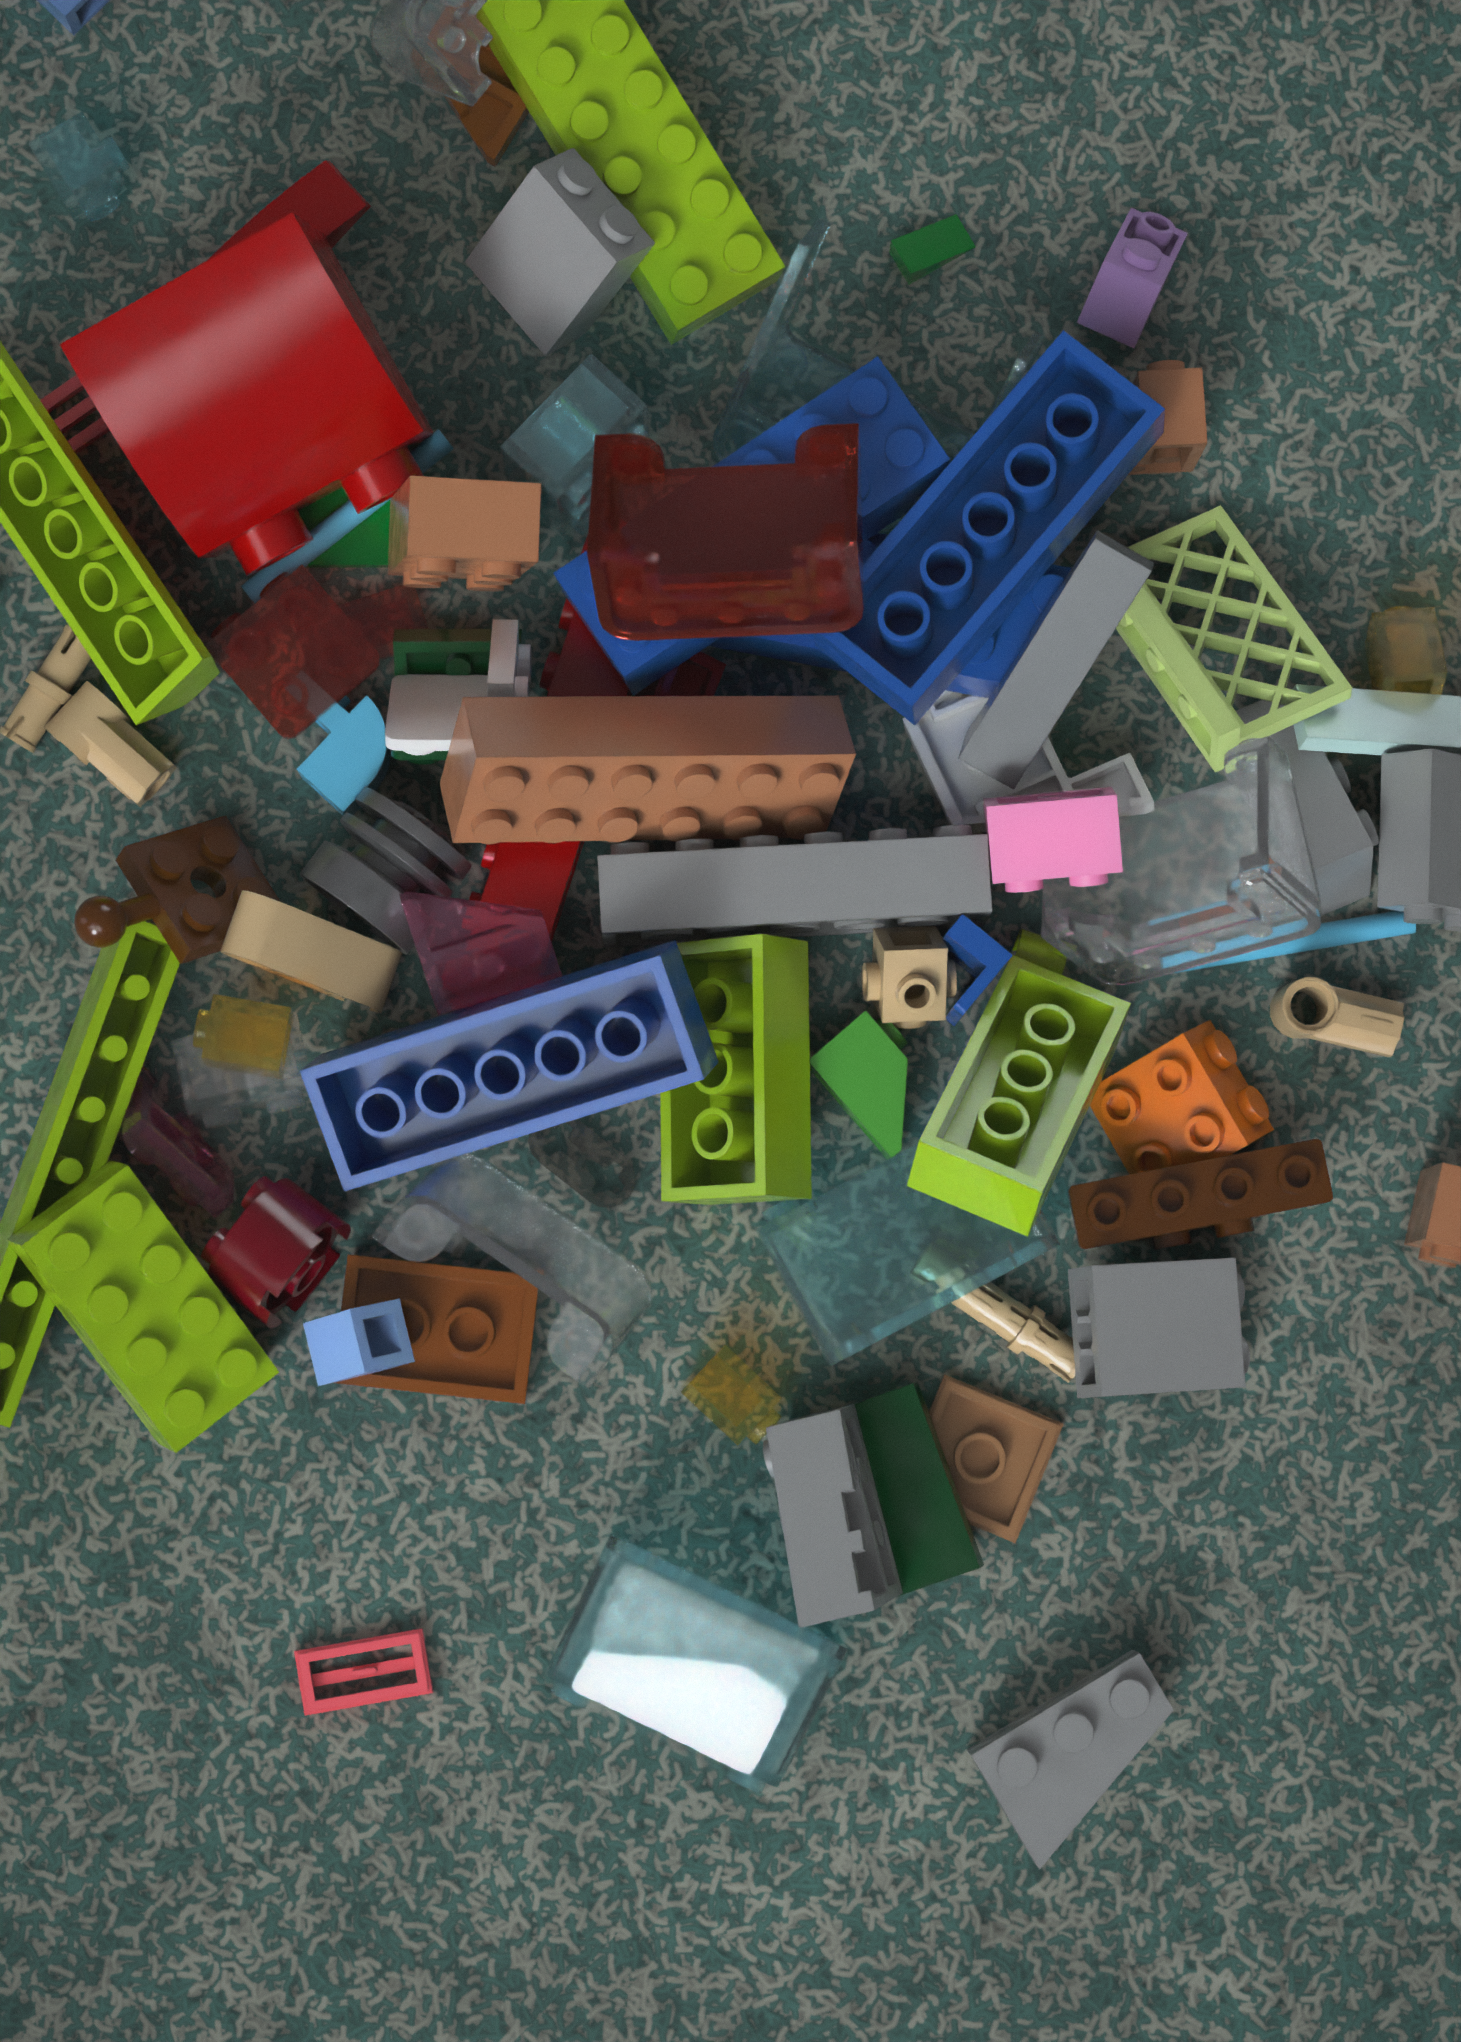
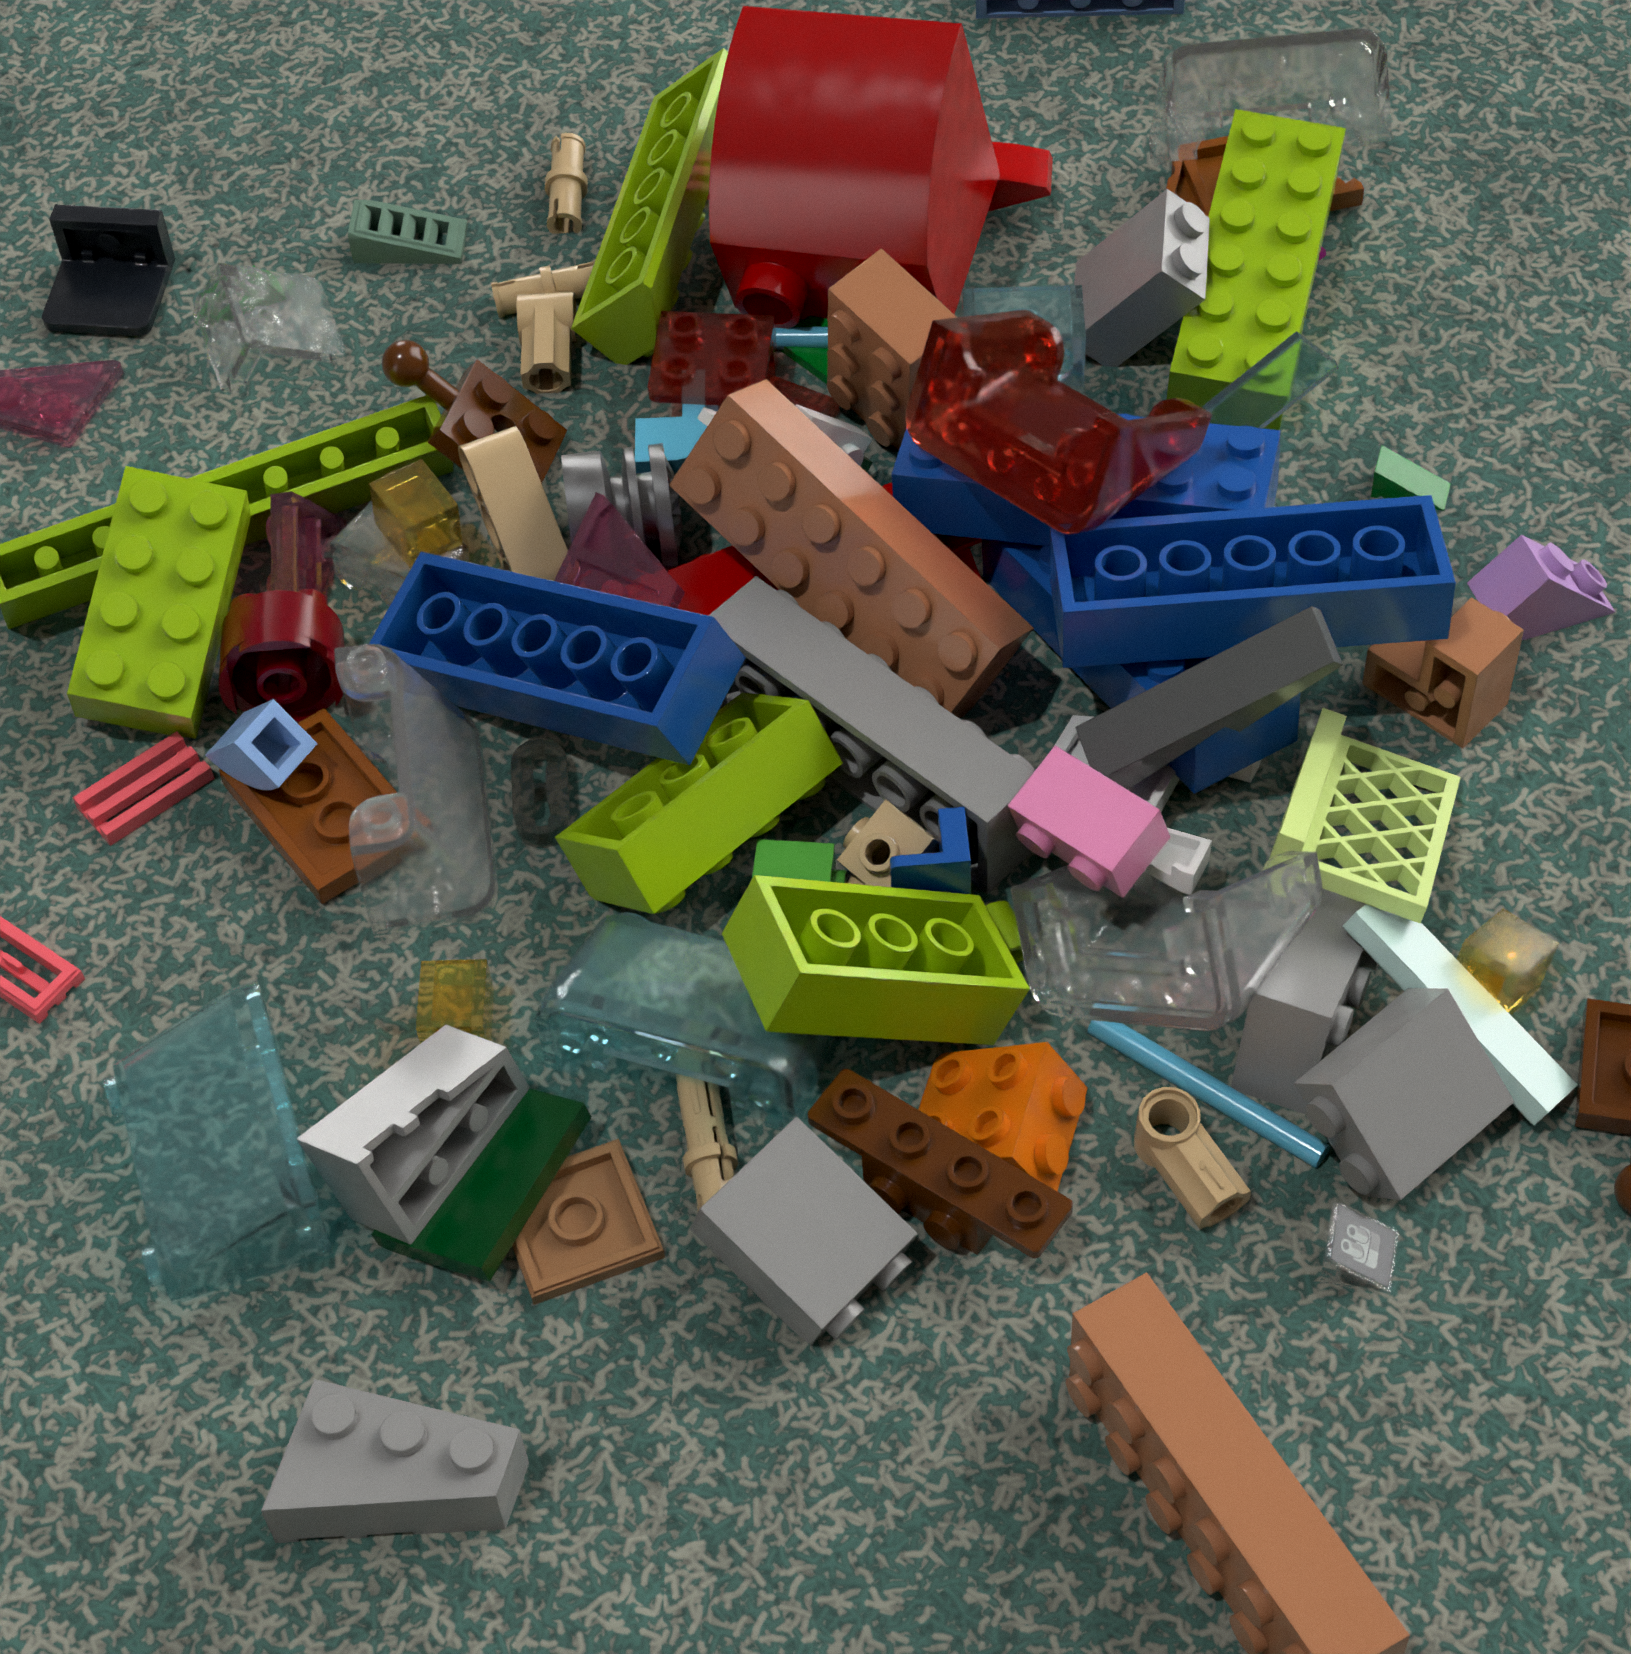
camera: 55 degrees right, 30 degrees down
(275, 1500) = (139, 779): none -> coral tile

